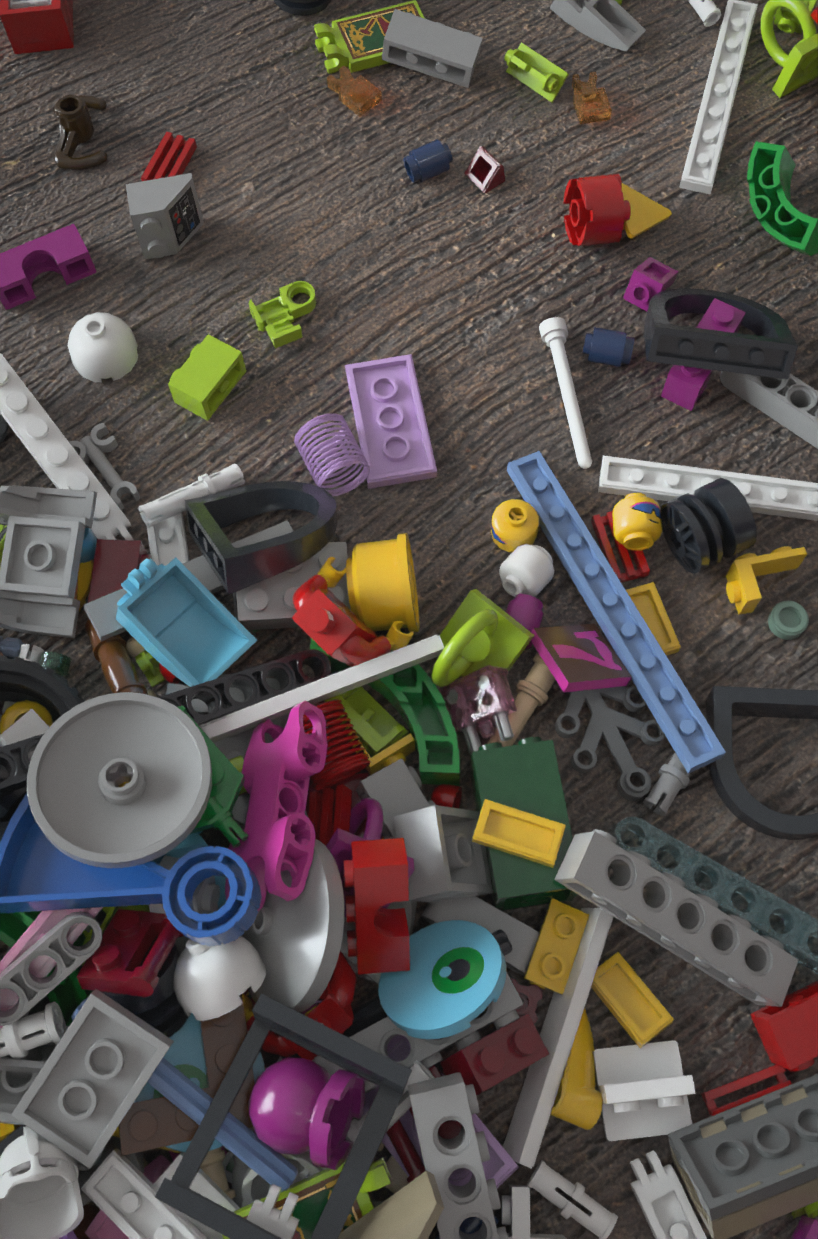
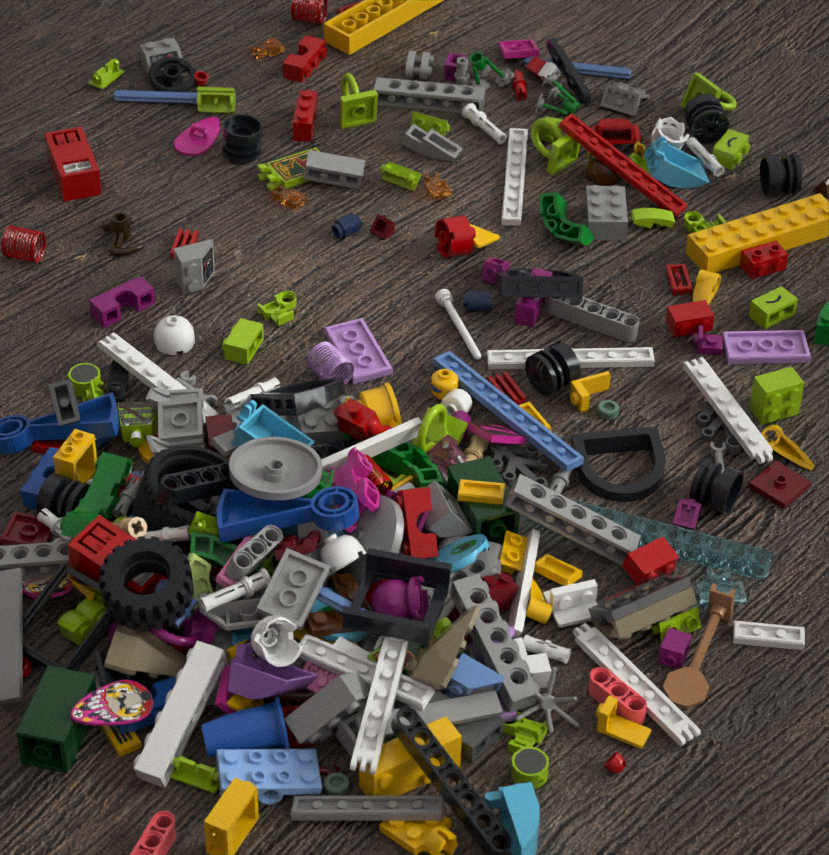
camera: 15 degrees left, 25 degrees down
(637, 521) = (513, 371): yellow head -> none

